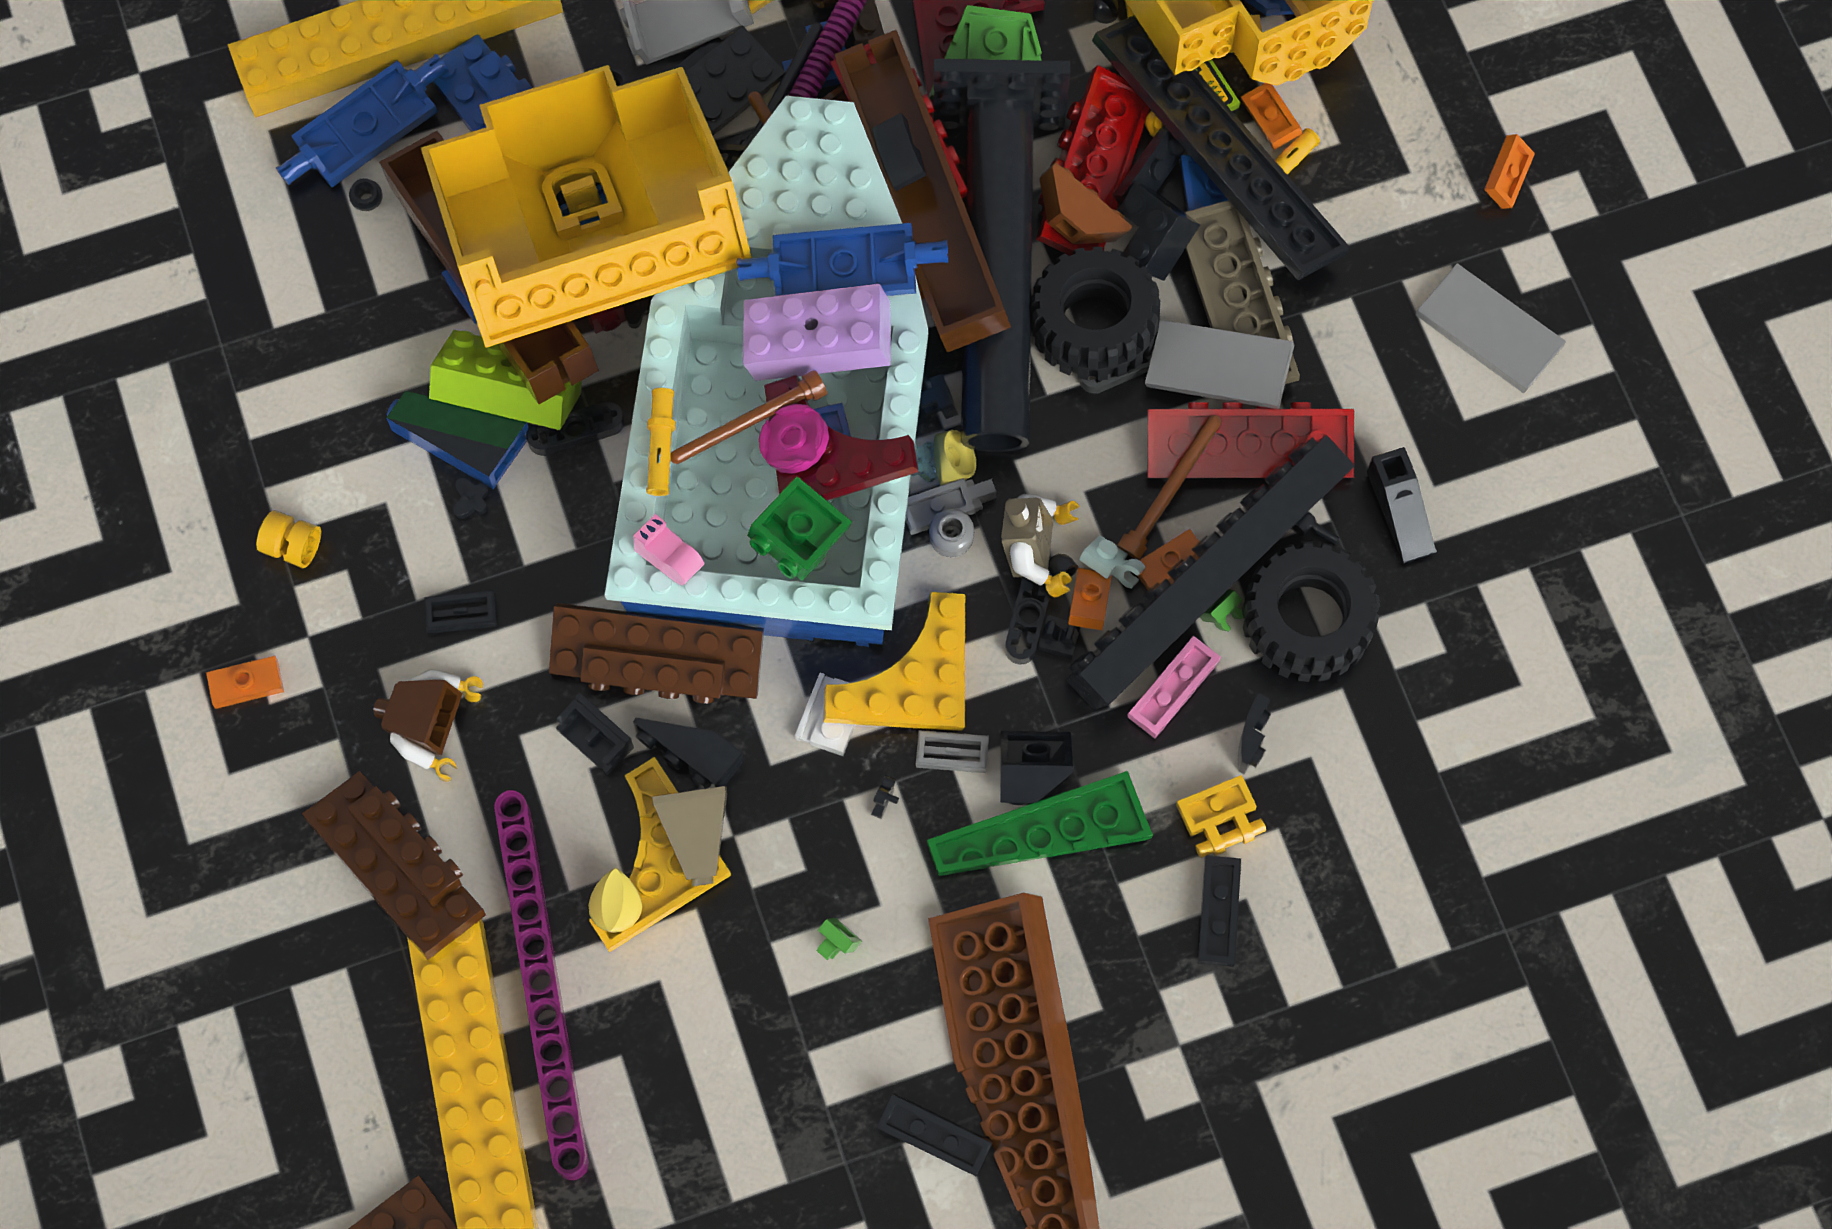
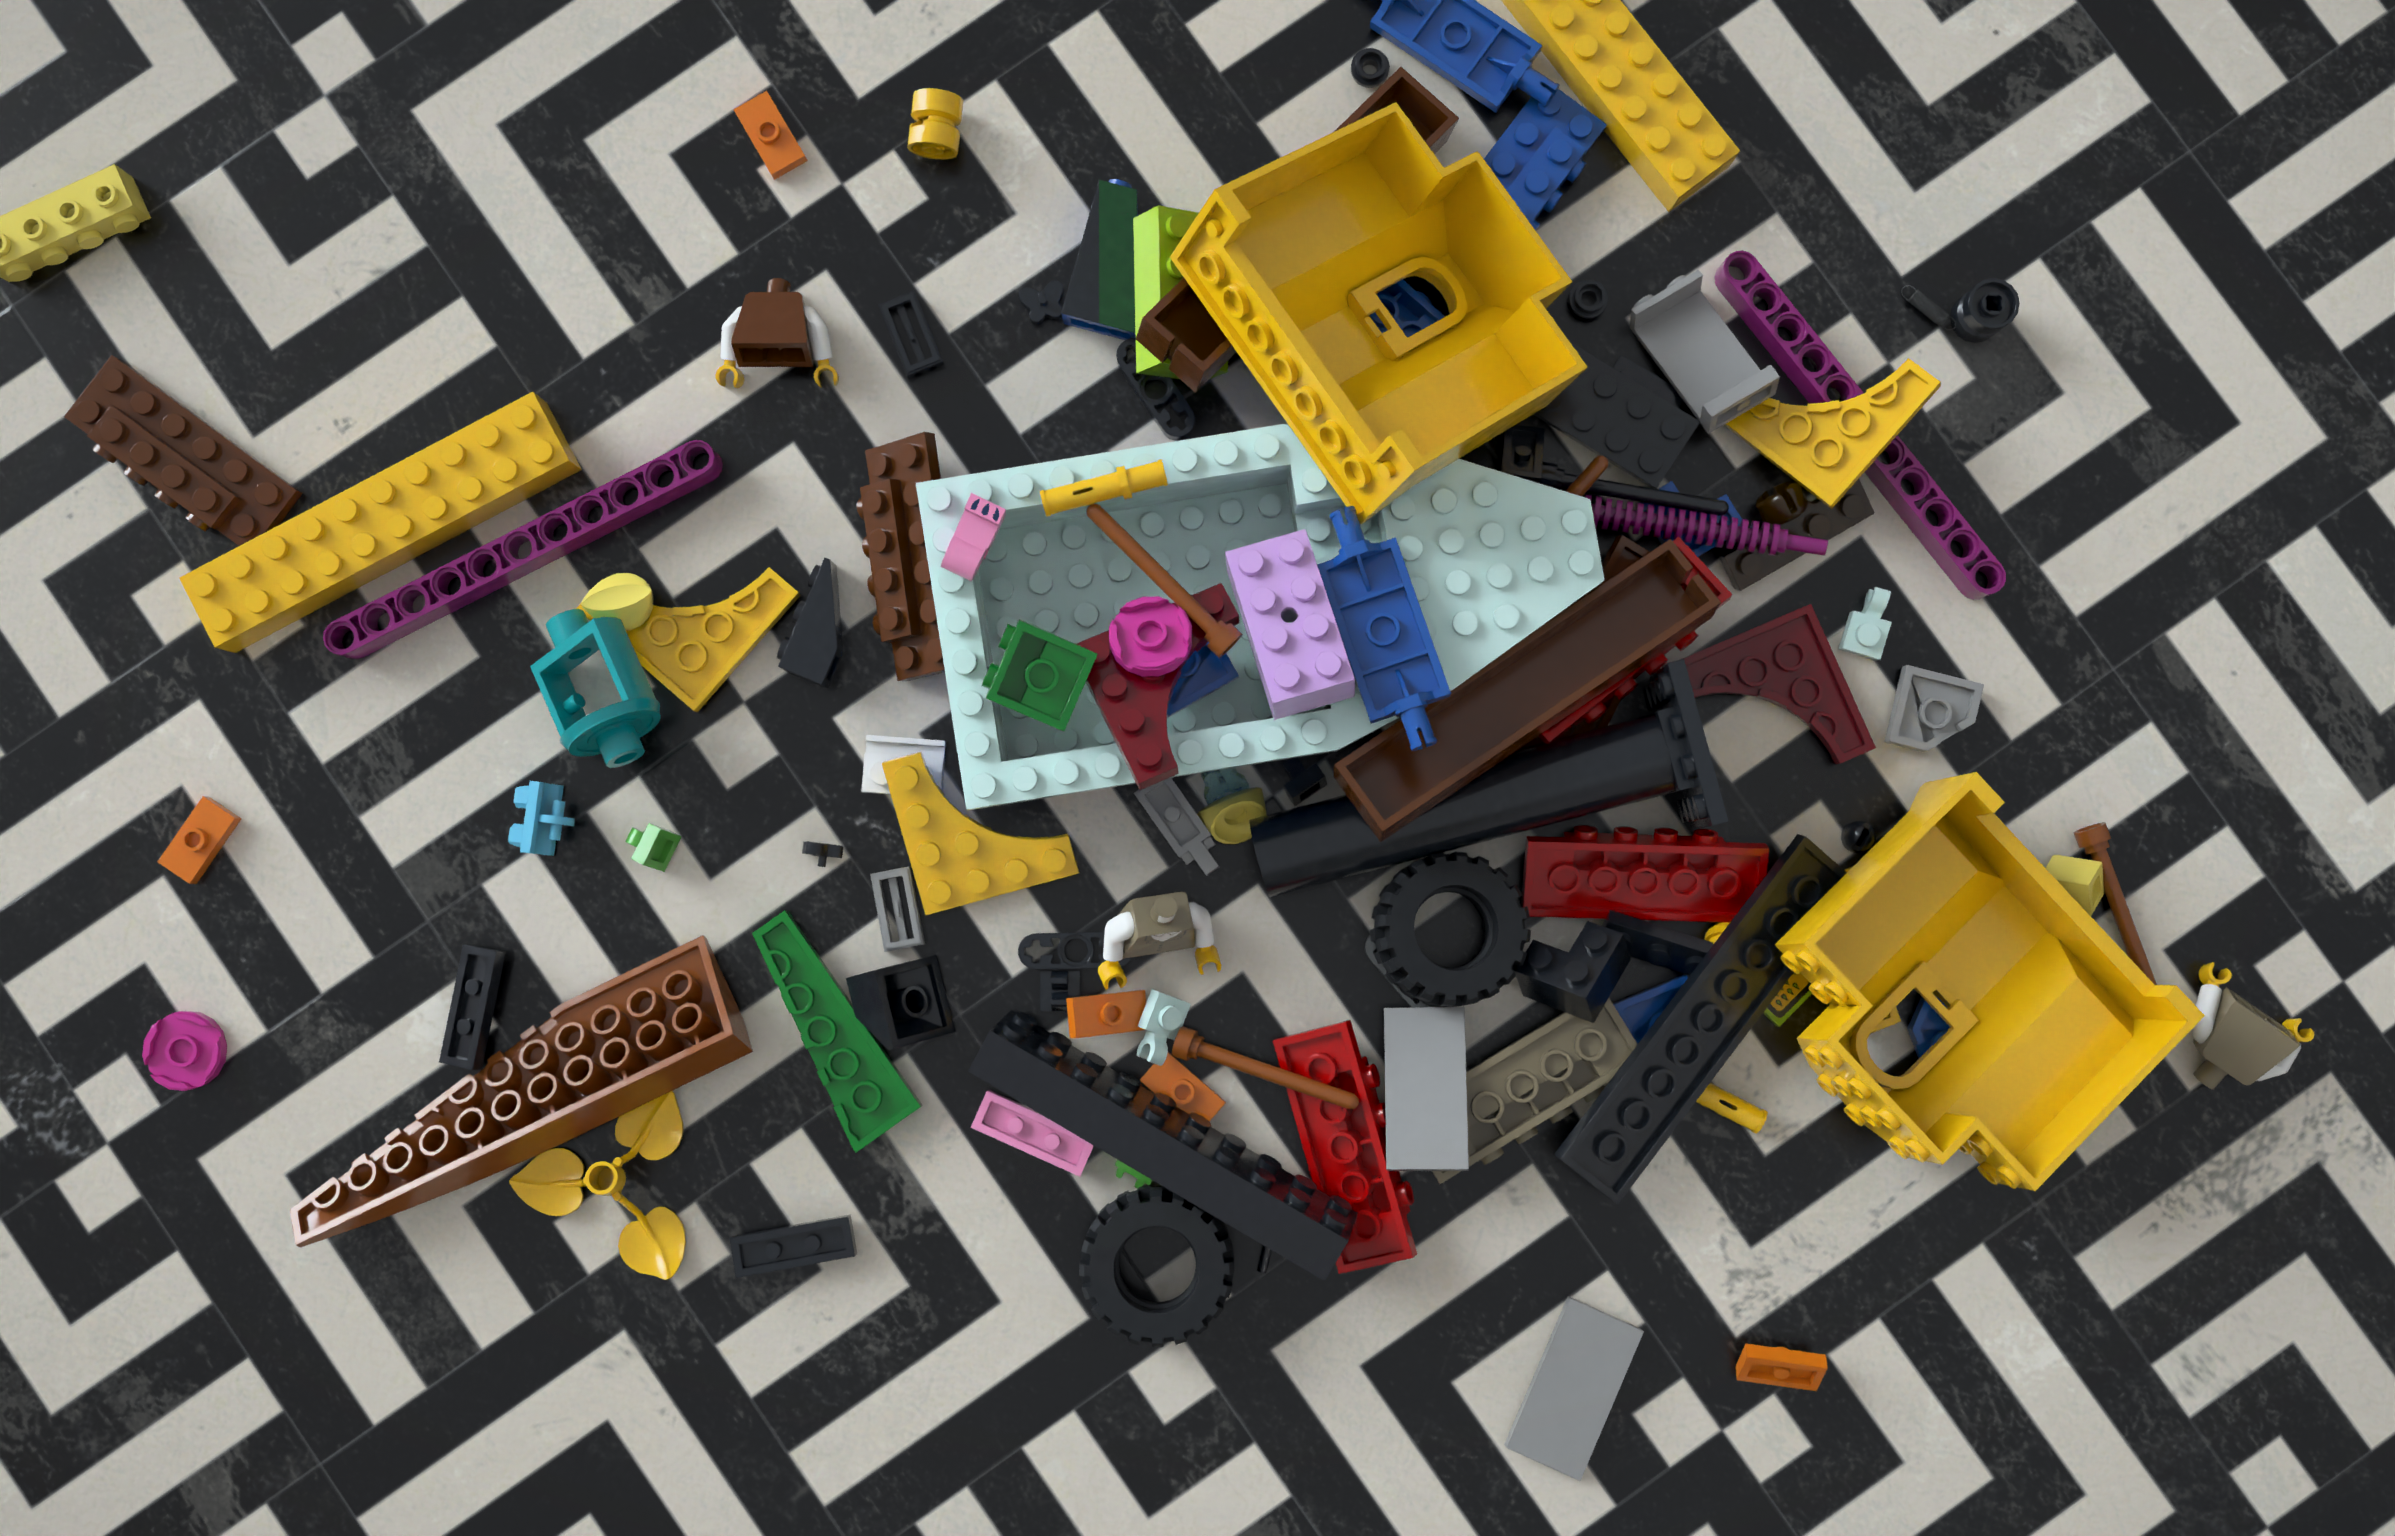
camera: 75 degrees right, 15 degrees up
(395, 863) = (600, 357): reddish brown plate -> none
(581, 194) = (1422, 304): yellow tile -> none
(594, 734) = (811, 521): black hinge -> none
(694, 829) = (721, 655): dark tan slope -> none
(730, 933) = (614, 728): none -> teal piece
(798, 1037) = (542, 818): none -> medium azure hips
(898, 152) = (1557, 649): black slope -> none
(952, 522) = (1126, 839): light grey head -> none
(994, 36) = (1764, 720): bright green wing -> none
(1062, 563) = (1140, 970): black hinge -> none
(1078, 210) = (1571, 875): dark orange slope -> none
(1115, 1107) = (555, 1181): none -> yellow plant
(1216, 806) = (909, 1214): yellow plate -> none
(1251, 740) = (987, 1234): black slope -> none
(1271, 115) = (1770, 1069): orange plate -> none
(1401, 504) = (1317, 1338): slope -> none

